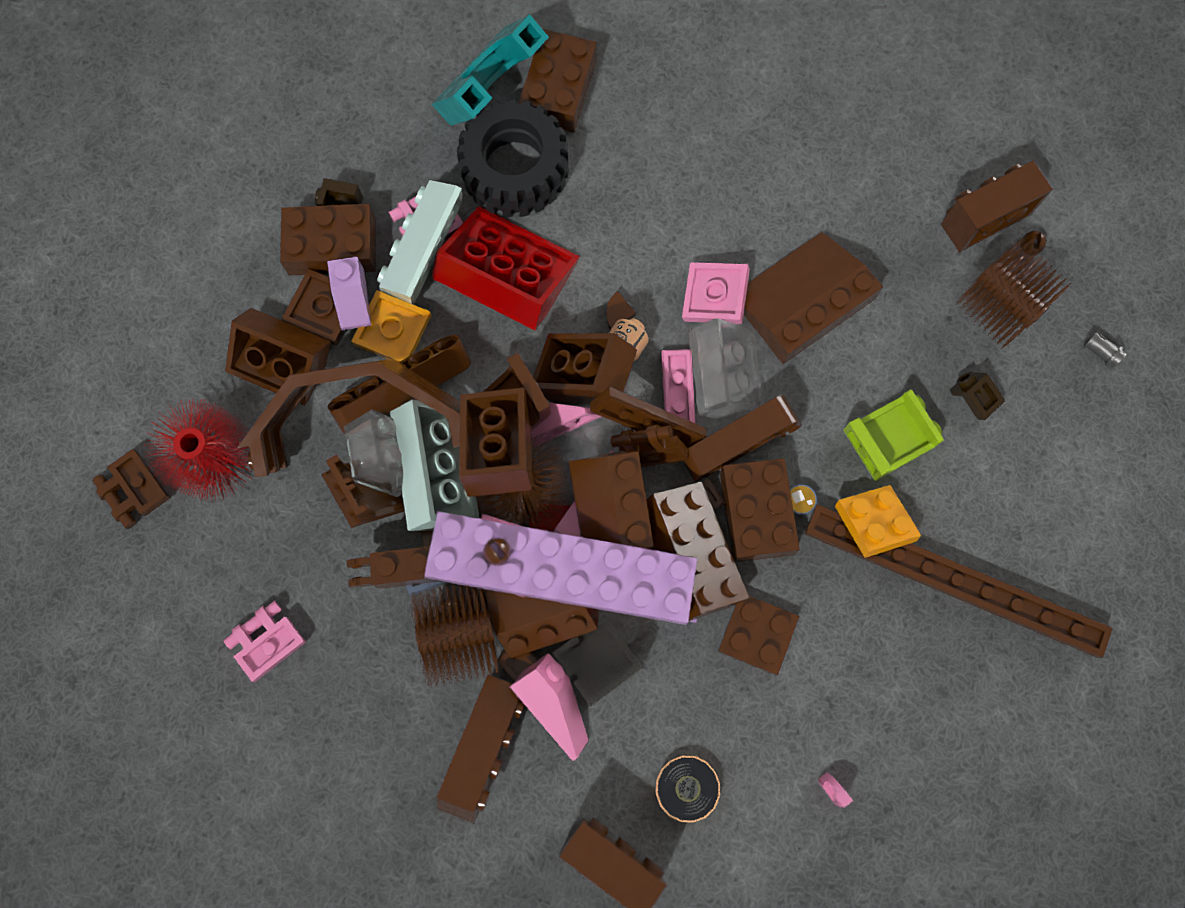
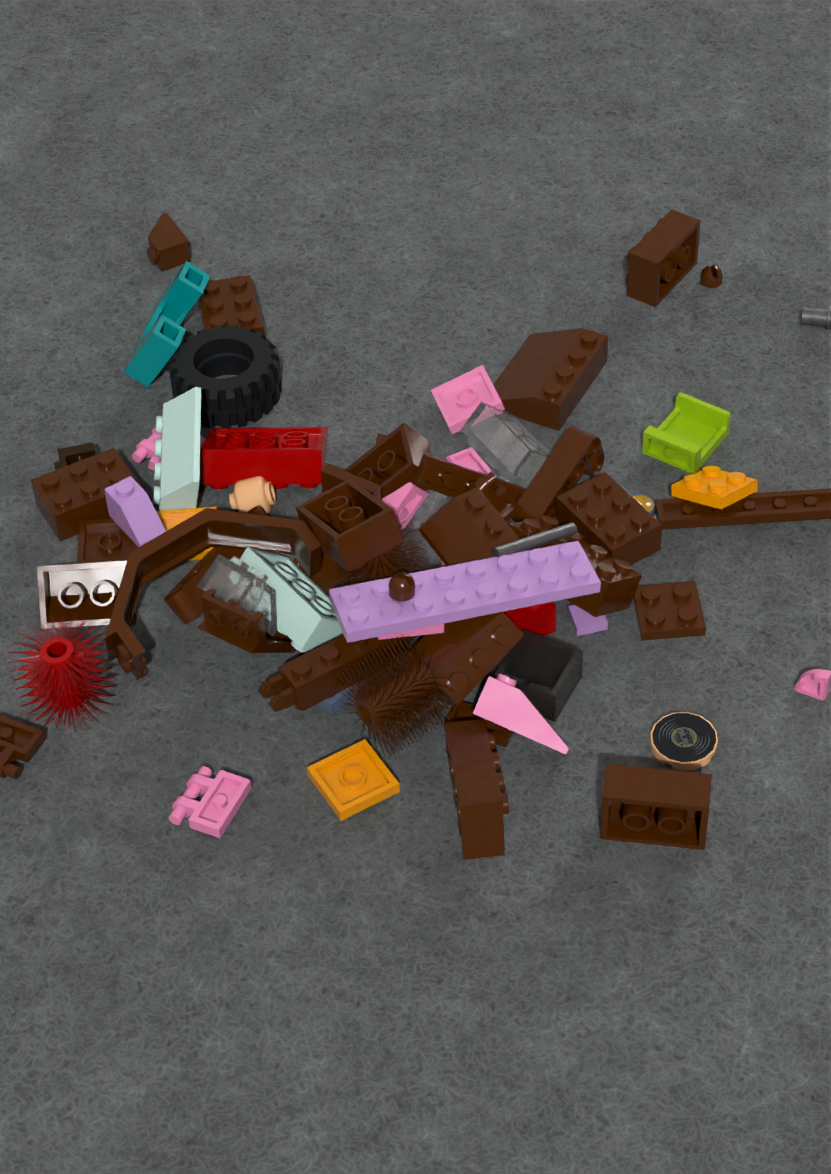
camera: 25 degrees left, 30 degrees down
(388, 682) = (353, 779): none -> light orange plate
(467, 316) = (251, 493): none -> light nougat head
(658, 536) = (535, 540): none -> flat silver bar
(978, 393) = (738, 379): dark brown bracket -> none
(1012, 293) = (714, 298): reddish brown piece -> none

